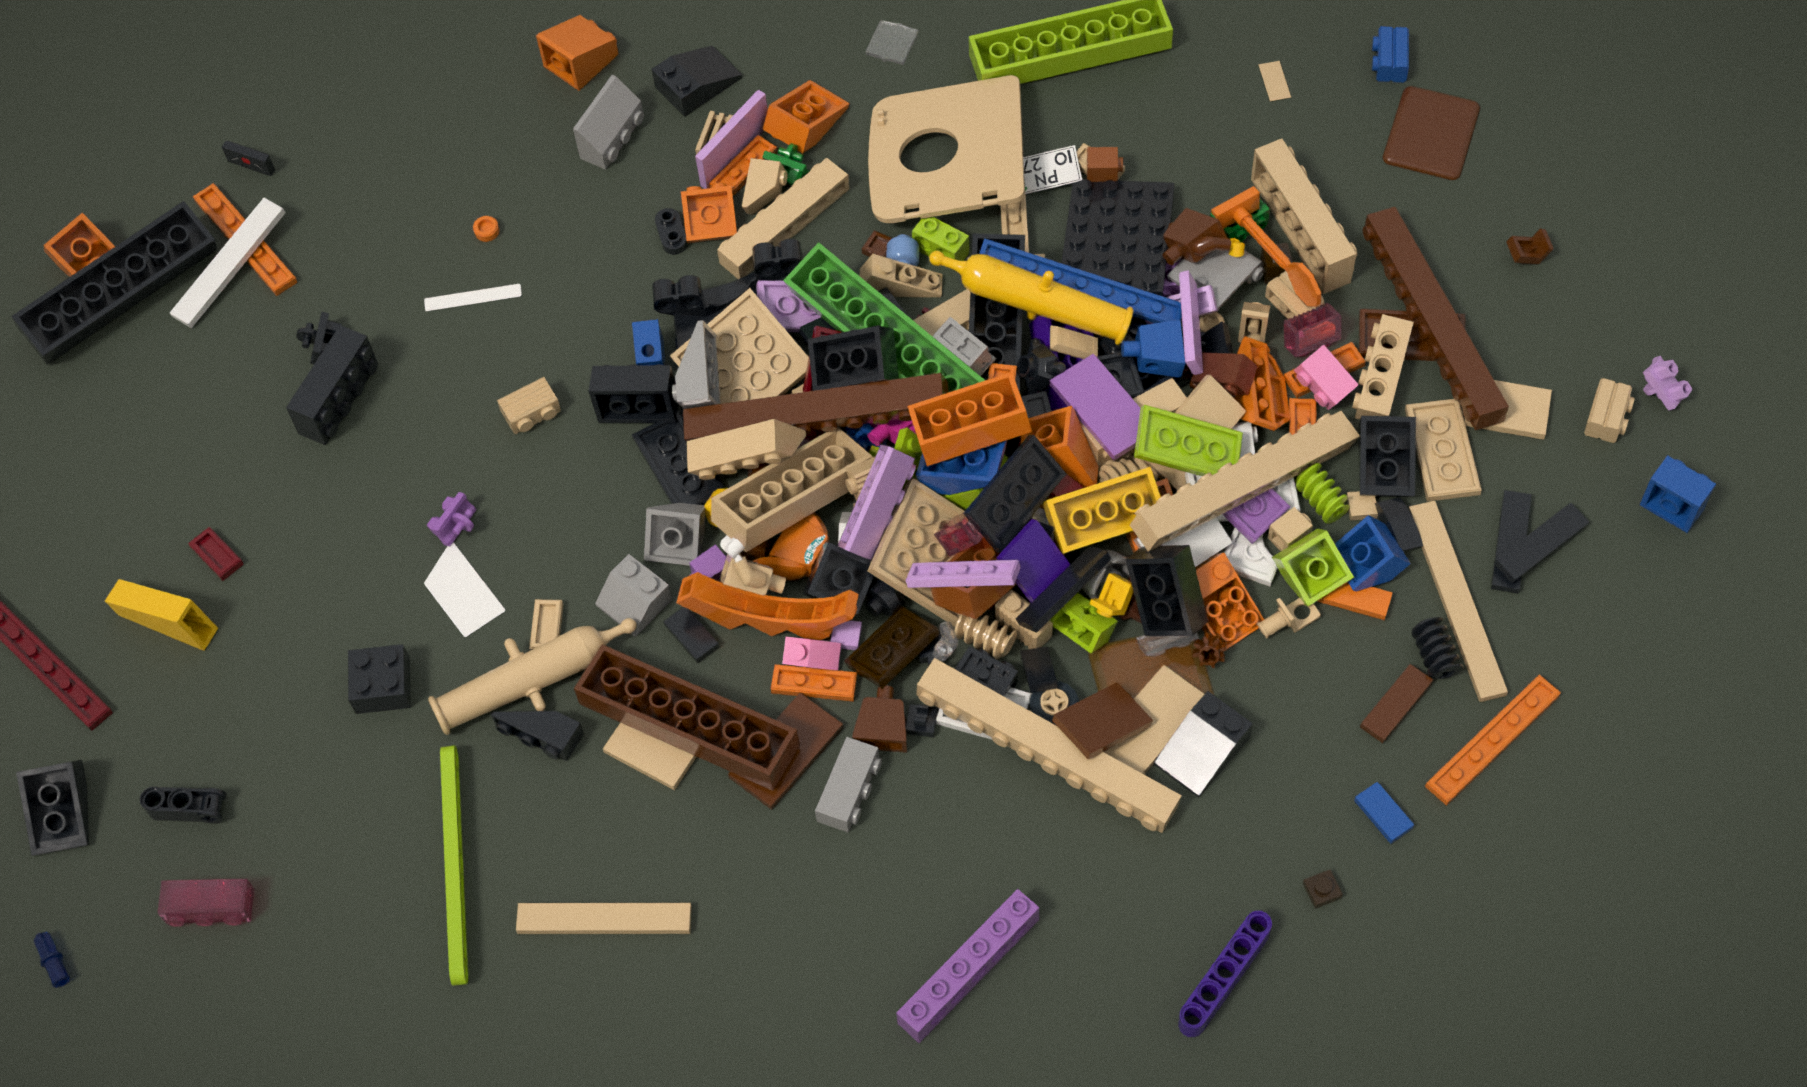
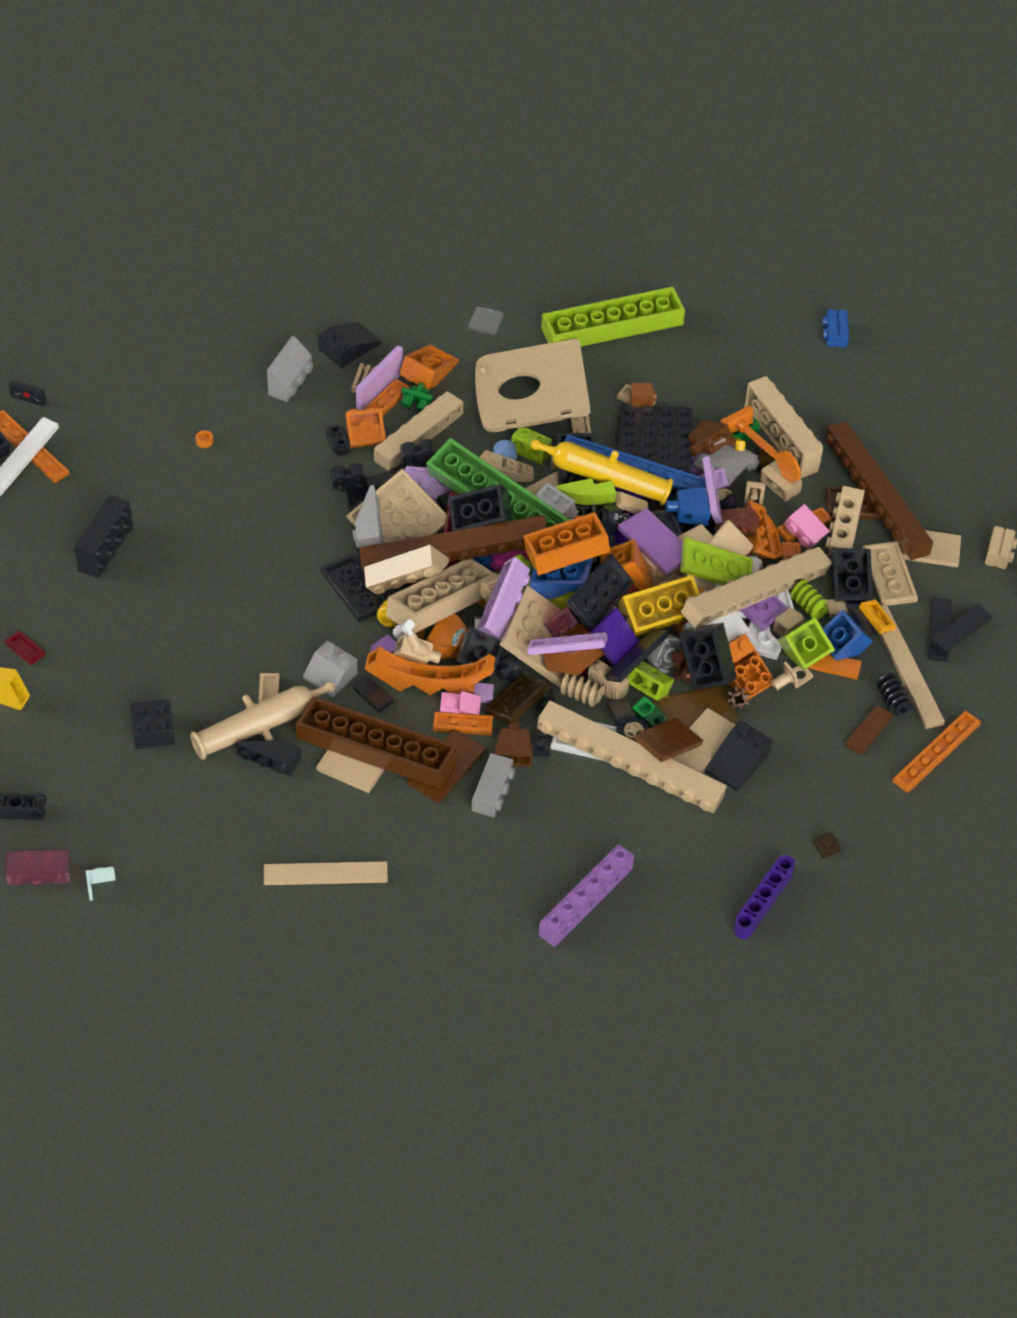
camera: 10 degrees left, 10 degrees down
(285, 916) = (99, 875): none -> light aqua bracket
(308, 335) = (87, 507): black hips -> none
(454, 519) = (198, 621): medium lavender hips -> none
(454, 866) = (216, 843): lime beam -> none
(462, 592) = (206, 670): white sticker -> none
(472, 297) = (197, 483): white sticker -> none
(529, 405) = (246, 550): tan brick -> none
(576, 50) = (261, 324): orange slope -> none
(633, 394) = (322, 540): black brick -> none
(648, 343) = (330, 513): blue torso -> none
(674, 533) = (356, 629): light grey slope -> none
(763, 184) = (403, 407): tan slope -> none
(876, 244) = (484, 445): reddish brown tile -> none
(947, 643) = (557, 692): clear arm -> none
(988, 671) = (587, 710): black bracket -> none
(1008, 329) = (589, 493): none -> lime slope
(1051, 169) = (606, 400): white sticker -> none
(1078, 675) = (648, 712): none -> leg
(1114, 596) = (671, 661): yellow bracket -> none
(1158, 644) = (703, 693): clear plate -> none
(1274, 81) = (756, 345): tan sticker -> none
(1312, 330) = (793, 497): clear pink brick -> none
(1384, 812) = (865, 797): blue tile -> none
(1416, 523) = (877, 616): none -> light orange tile
(1431, 133) = (867, 378): reddish brown piece -> none
(1530, 249) = (940, 449): reddish brown bracket -> none

